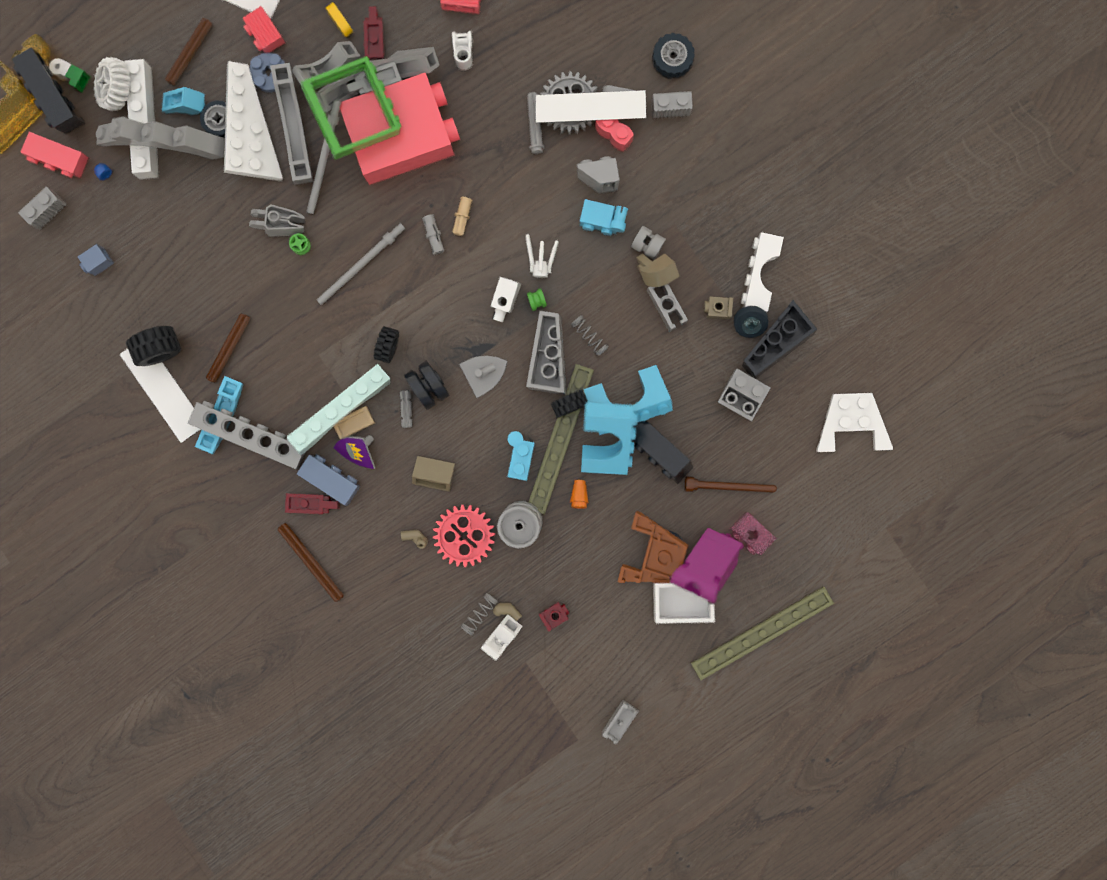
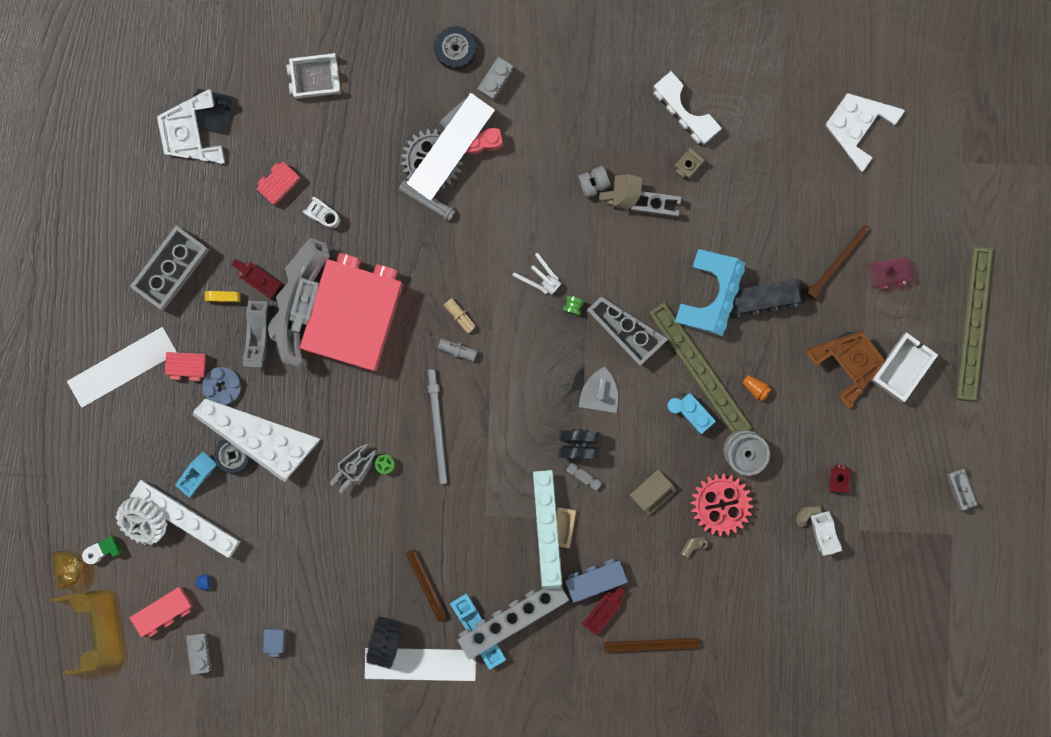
camera: 60 degrees left, 0 degrees up
(46, 91) = (109, 577): black wedge -> none
(155, 134) = (216, 514): light grey arch -> none
(188, 51) = (155, 439): reddish brown axle -> none
(292, 123) = (283, 398): light grey arch -> none
(333, 120) = (310, 362): light grey bar -> none
(356, 450) = (589, 541): dark purple shield -> none
(363, 64) = (308, 369): bright green window -> none
(386, 344) = (521, 453): black tyre -> none
(487, 597) = (799, 556): light grey piece -> none
(509, 290) = (549, 323): white torso -> none
(569, 403) = (679, 341): black tyre -> none
(578, 321) = (652, 283): light grey piece -> none
(600, 174) = (512, 180): light grey slope -> none
(603, 217) = (546, 202): medium azure hinge -> none
(615, 420) = (749, 335): medium azure arch -> none
(708, 565) = (889, 325): magenta piece -> none
(743, 394) = (773, 197): light grey slope -> none
(744, 318) = (719, 147): black wheel -> none
(782, 338) = (751, 133): black wedge -> none

